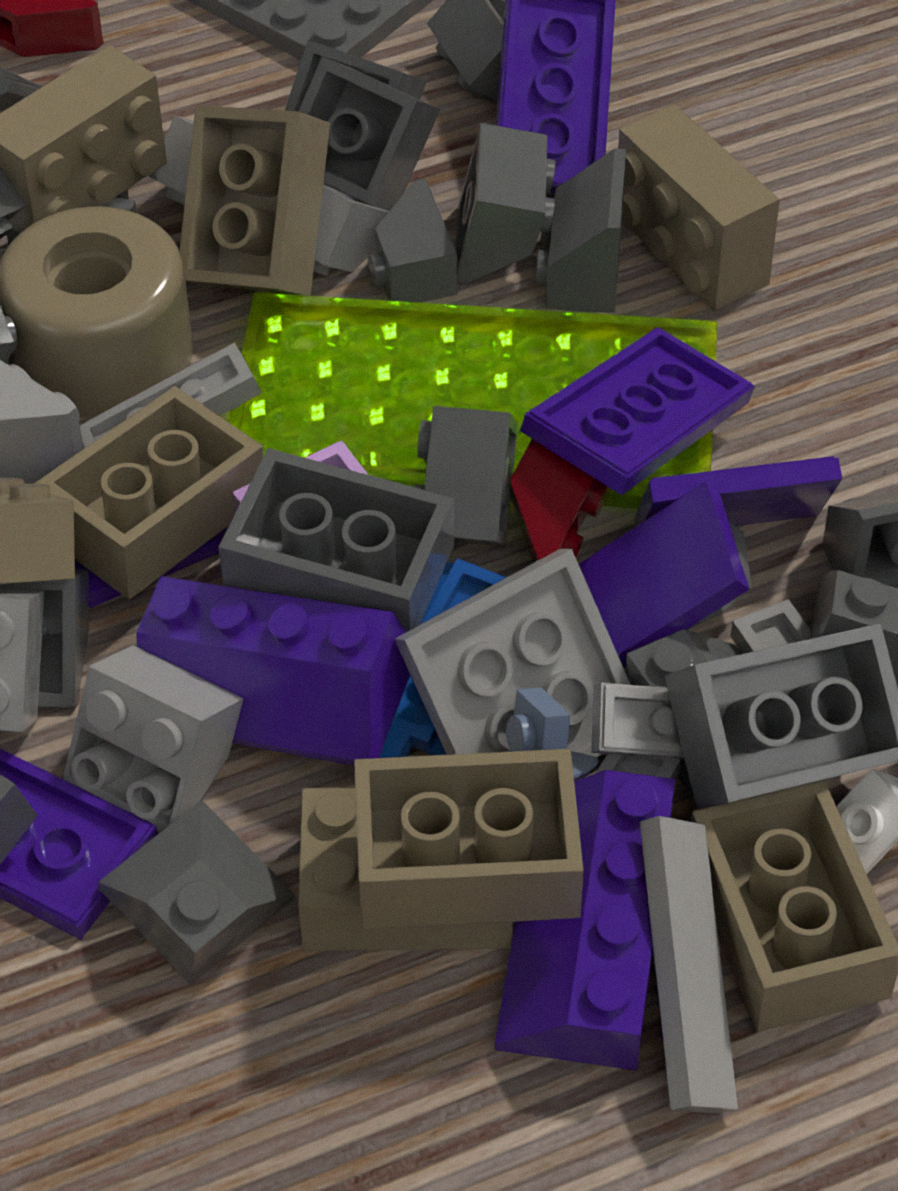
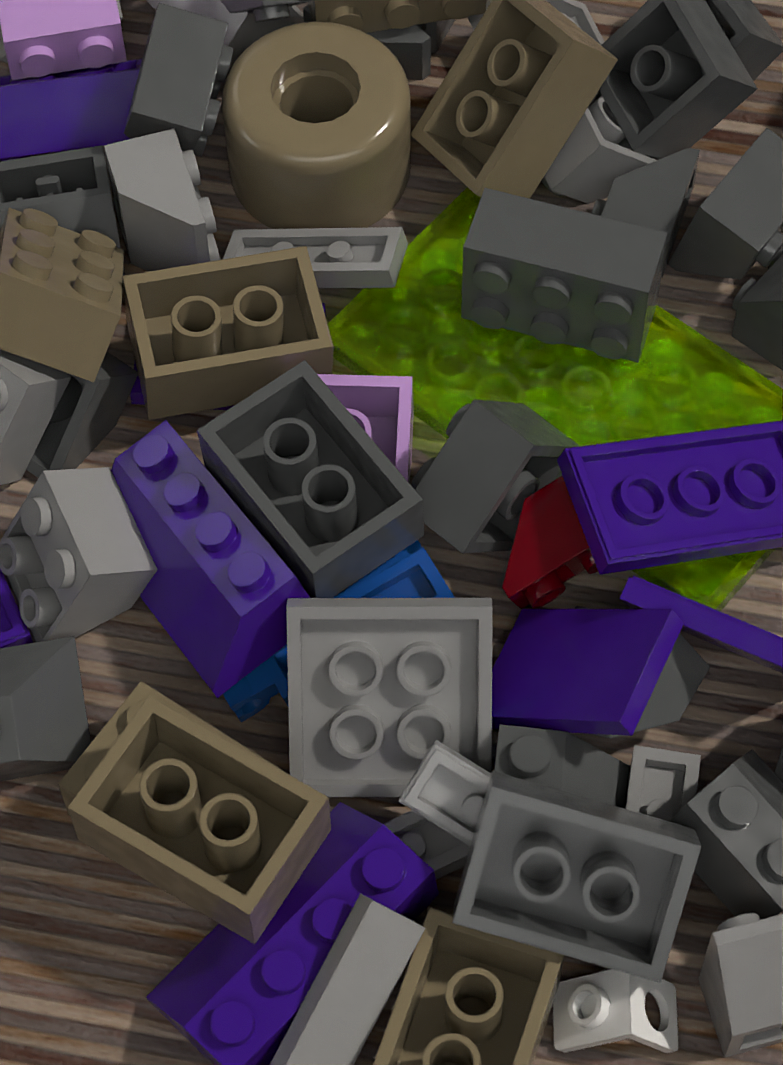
camera: 35 degrees right, 10 degrees up
(404, 305) = (561, 275): none -> dark grey brick
(543, 725) = (356, 777): sand blue plate -> none

